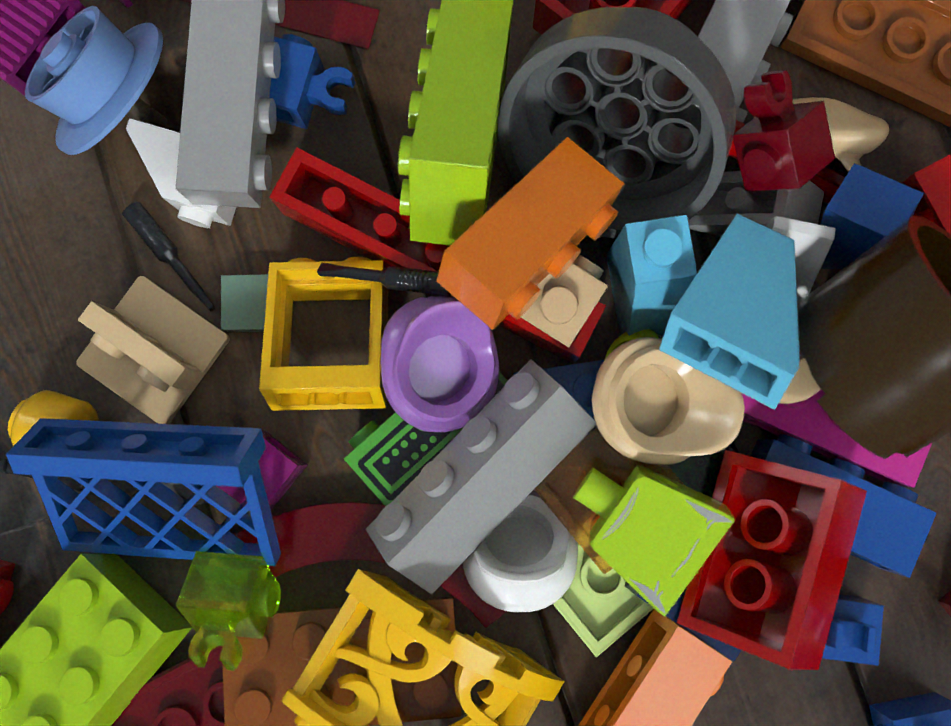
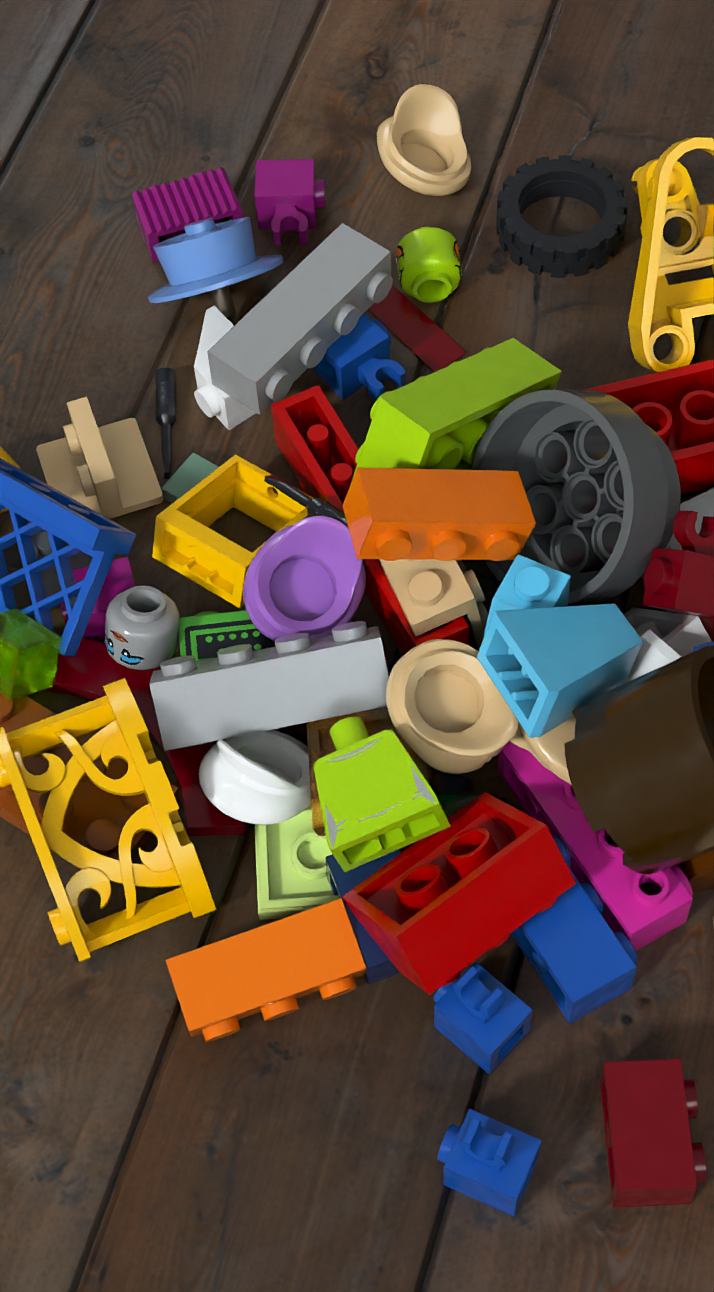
camera: 35 degrees right, 25 degrees down
(321, 492) = (142, 628): none -> light grey head

